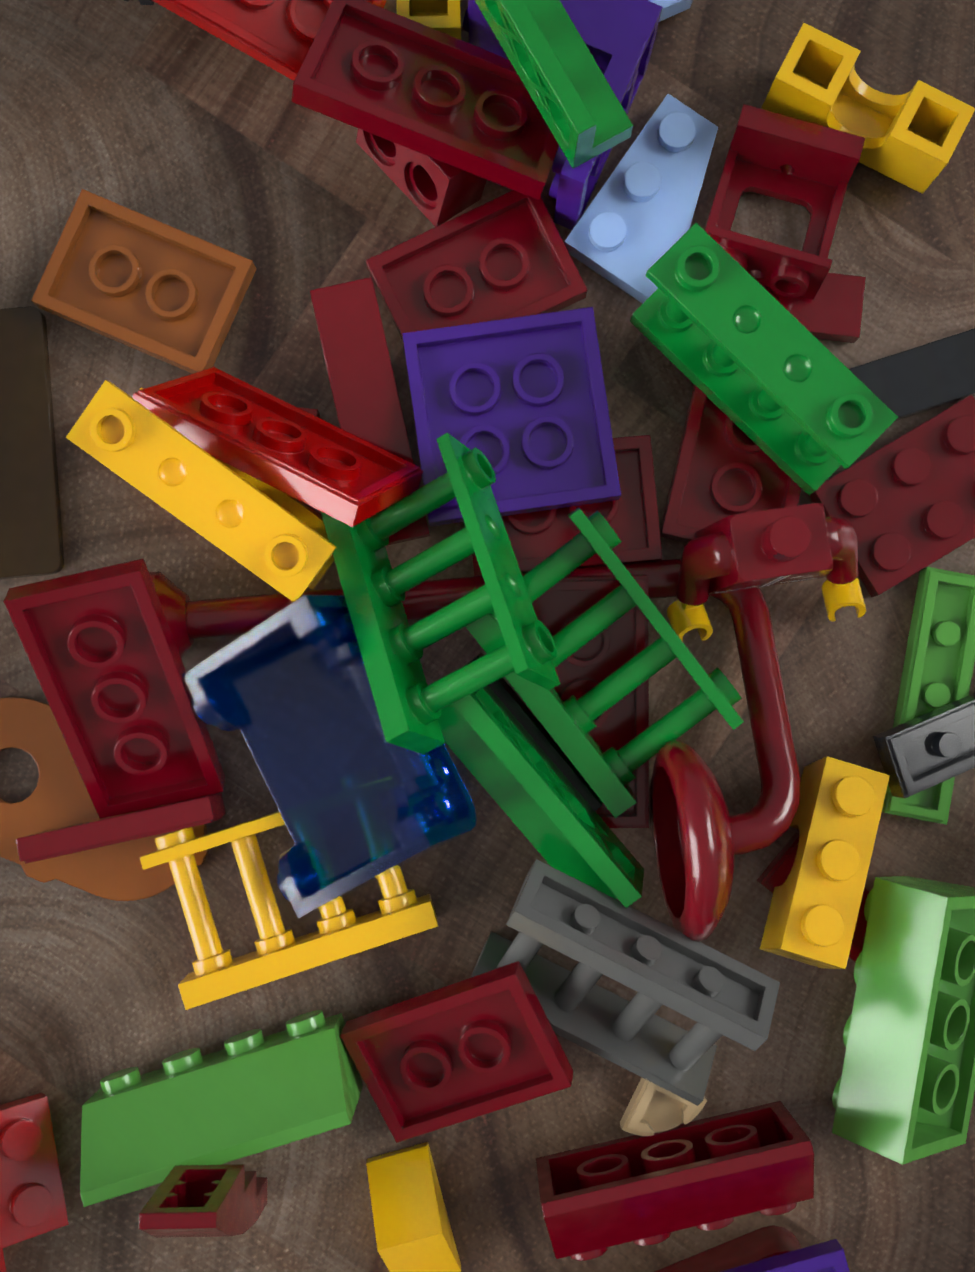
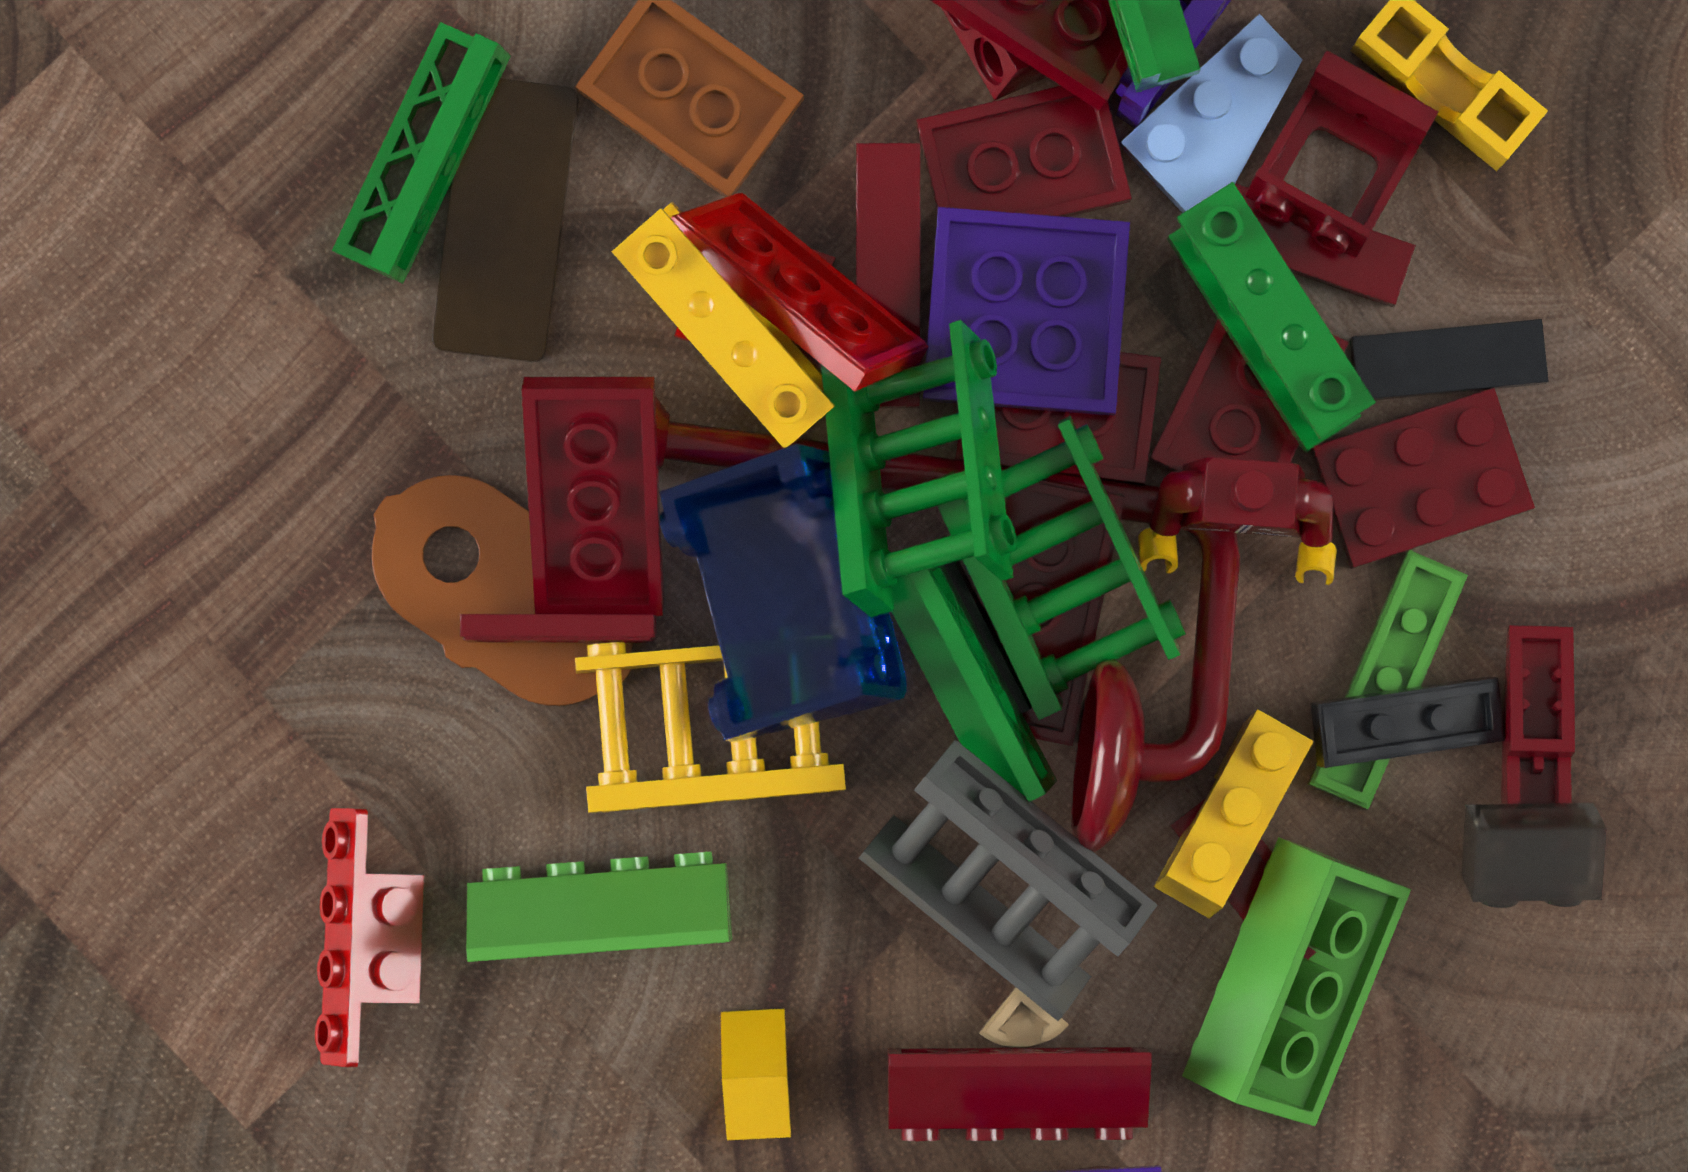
camera: 15 degrees right, 0 degrees up
(205, 1202) = (583, 986): slope -> none
(457, 1052) = (836, 916): dark red plate -> none

